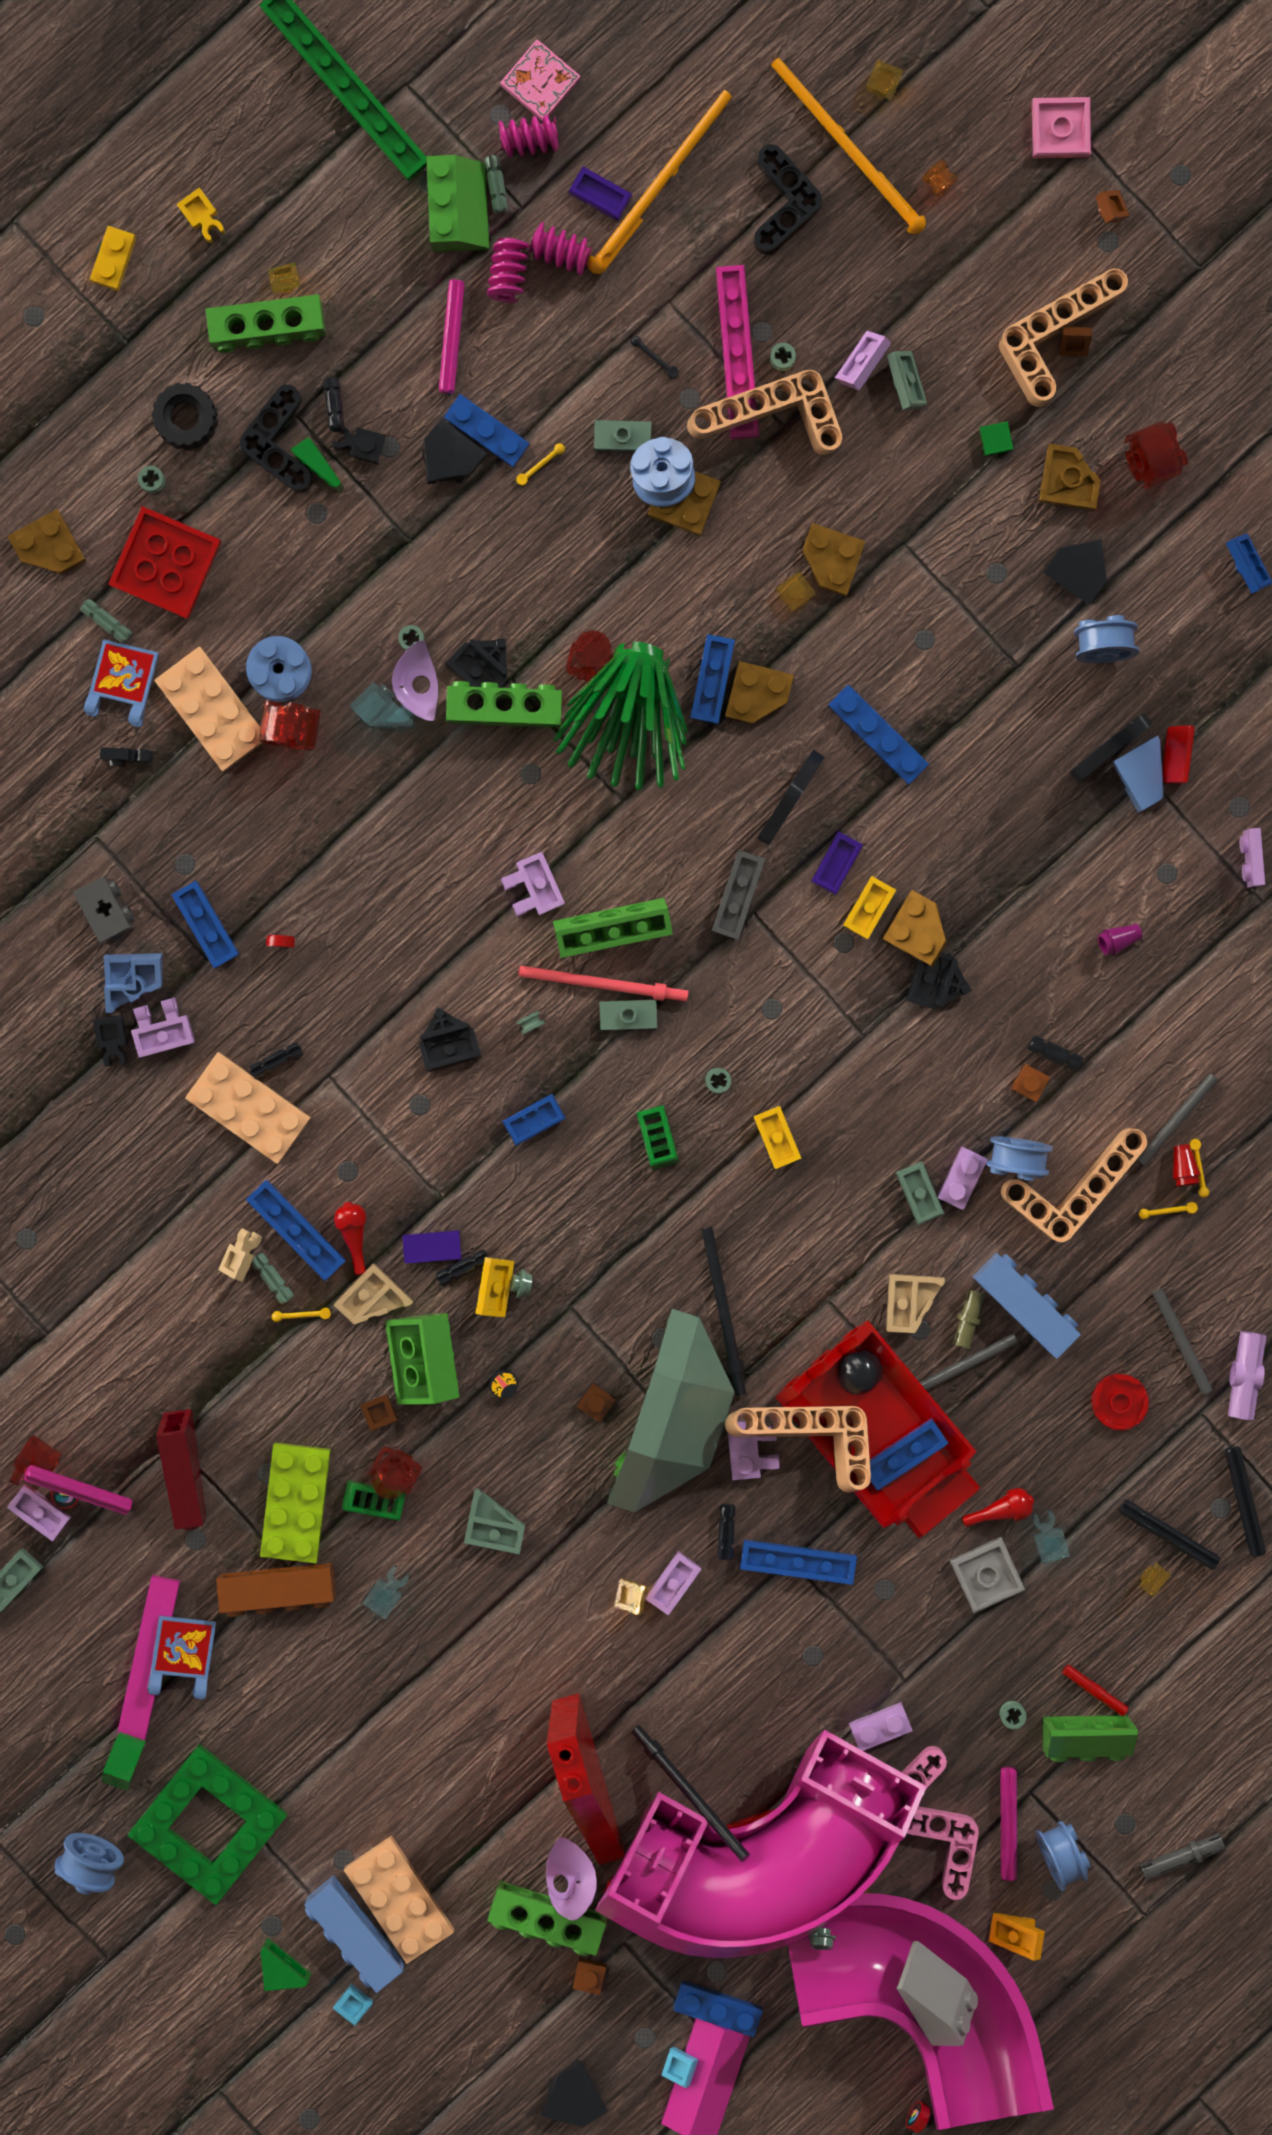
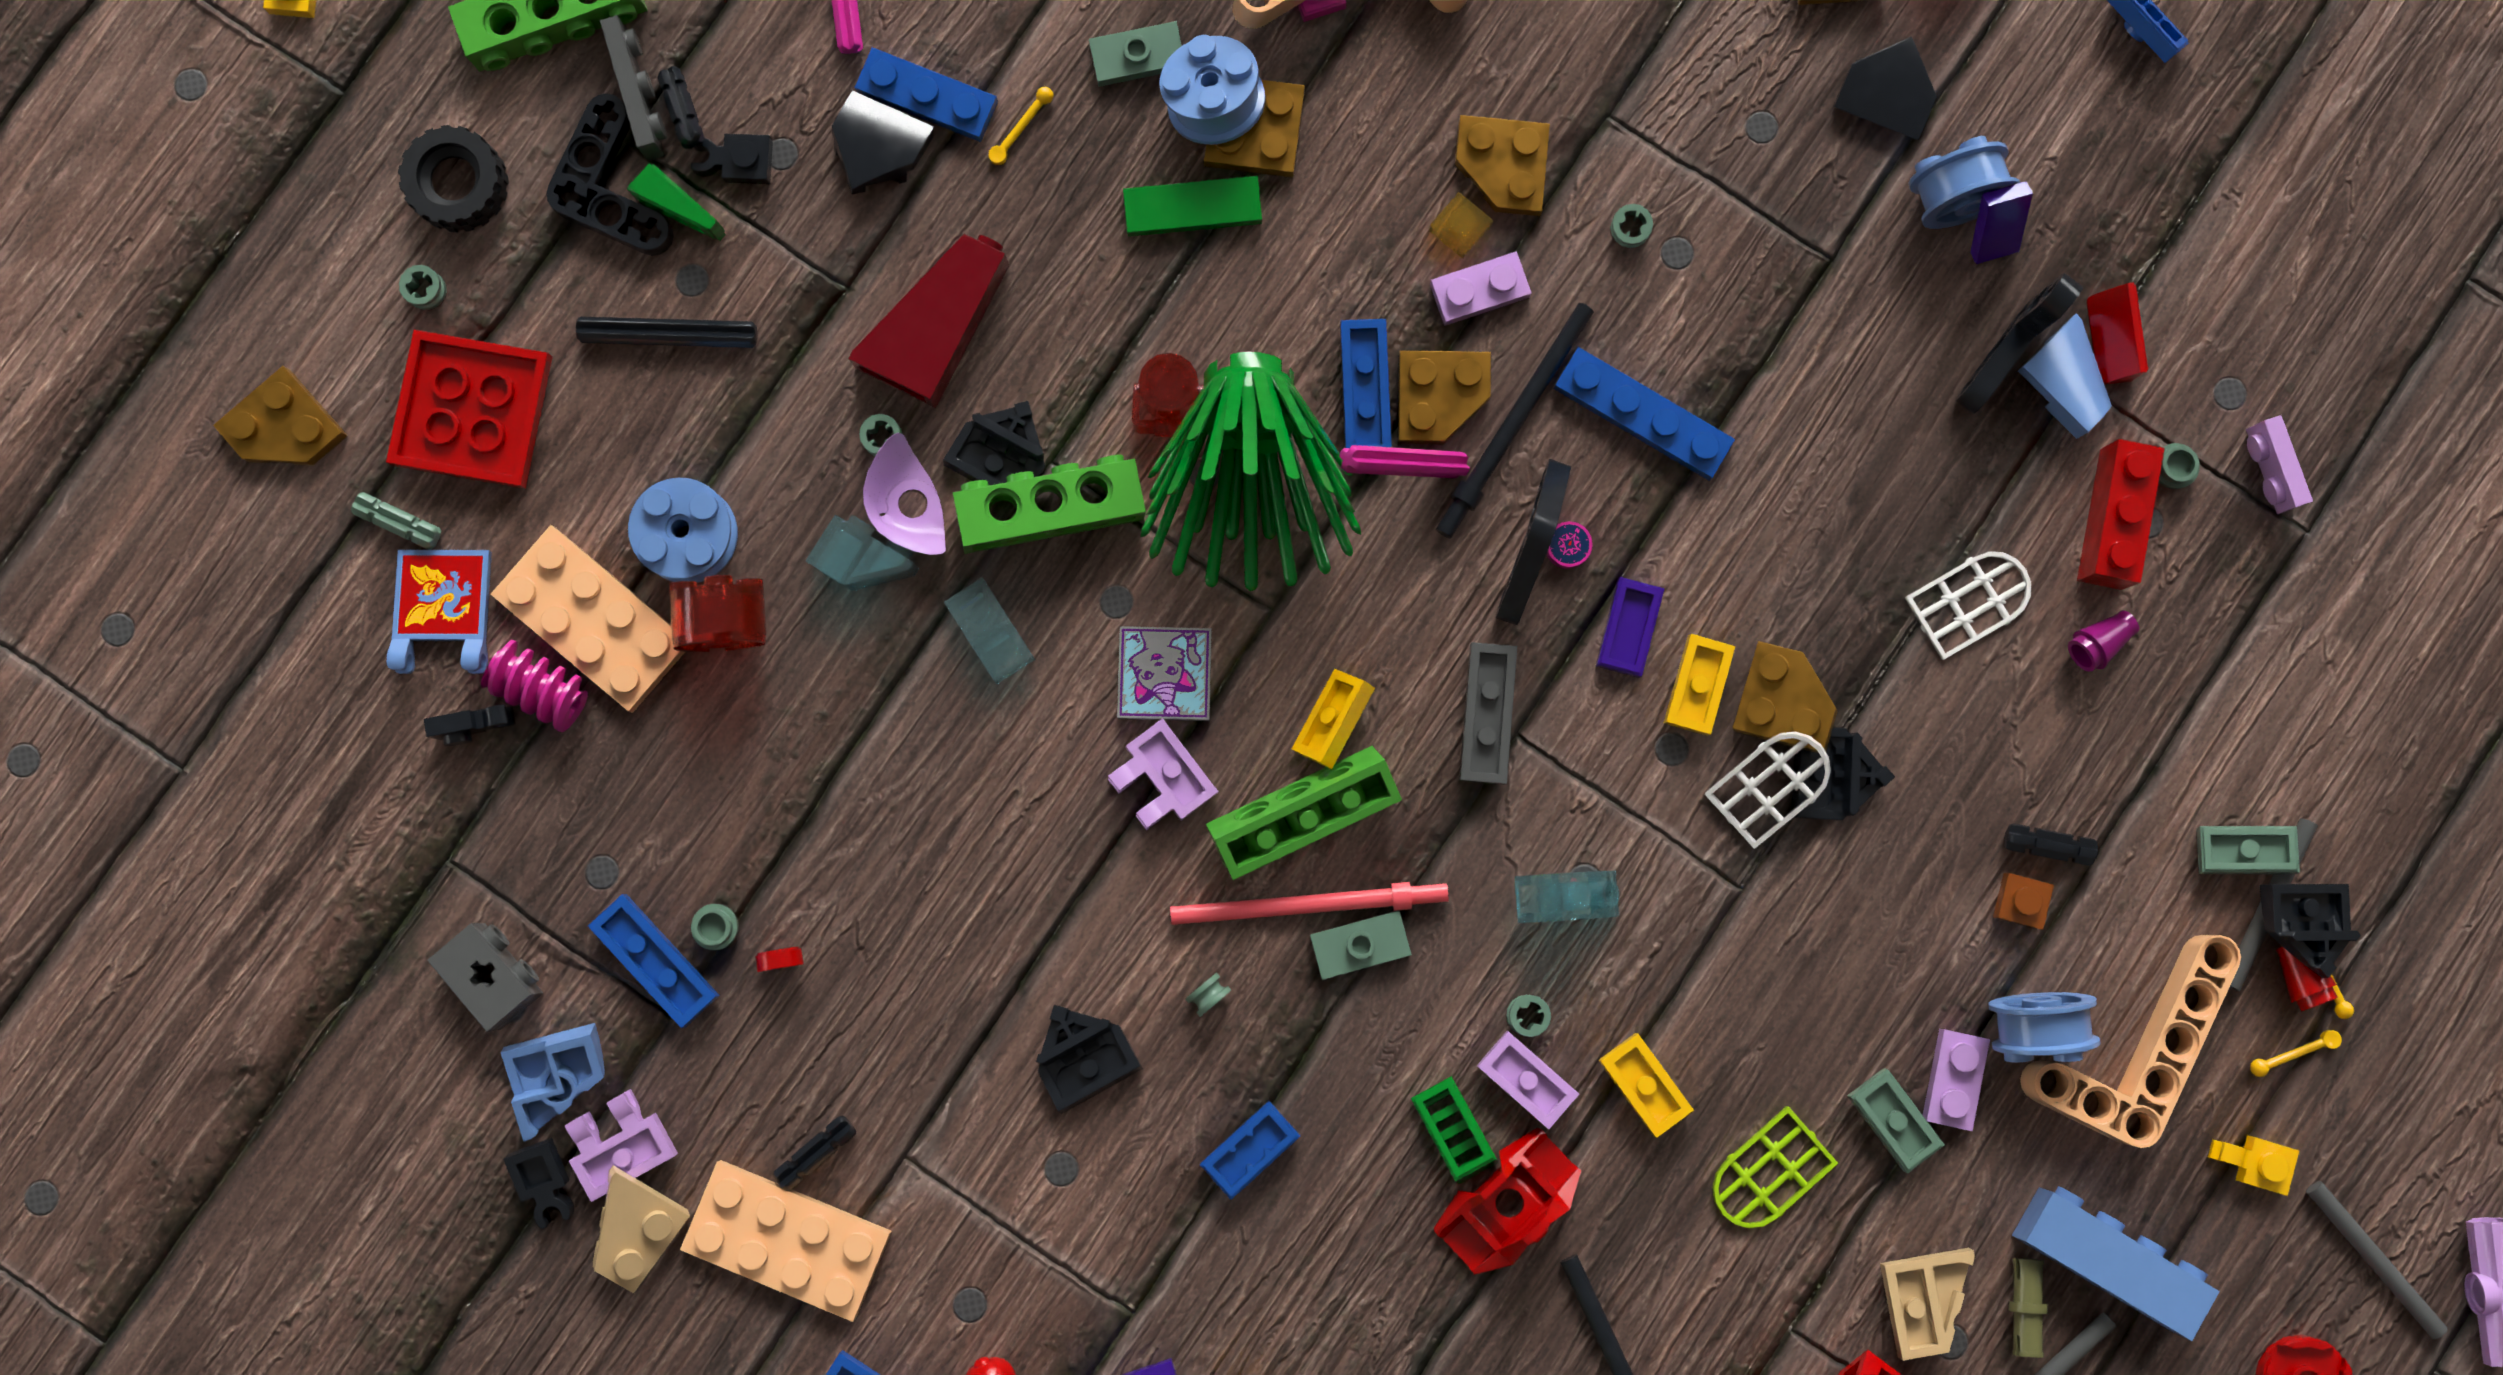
camera: 15 degrees left, 5 degrees down
(160, 1080) = (634, 1229): none -> tan wing
(169, 743) = (534, 687): none -> dark pink piece
(246, 913) = (714, 927): none -> sand green plate
(294, 543) = (666, 332): none -> black axle
(308, 385) = (634, 87): none -> dark grey plate
(450, 773) = (989, 630): none -> clear light blue slope
(459, 577) = (934, 322): none -> dark red slope
(549, 824) = (1164, 673): none -> tile
(634, 540) = (1192, 206): none -> green tile
(644, 875) = (1333, 718): none -> yellow plate
(703, 1182) = (1495, 1241): none -> red piece
(708, 1117) = (1527, 1079): none -> lavender plate
(723, 732) = (1404, 462): none -> dark pink axle
(758, 1015) = (1566, 896): none -> clear light blue slope
(759, 758) = (1468, 493): none -> black bar
(798, 633) = (1480, 288): none -> lavender plate
(812, 804) = (1570, 545): none -> dark blue tile
(851, 1206) = (1773, 1153): none -> lime window
(891, 988) = (1768, 804): none -> white window
(893, 610) = (1619, 219): none -> sand green bush
(1036, 892) = (1953, 598): none -> white window
(1122, 669) = (2001, 222): none -> dark purple tile
(1129, 1269) = (2259, 1163): none -> yellow plate
(1149, 865) = (2120, 514): none -> red brick
(1171, 1084) = (2247, 850): none -> sand green plate
(1192, 843) = (2179, 466): none -> sand green plate
(1195, 1134) = (2309, 921): none -> black slope

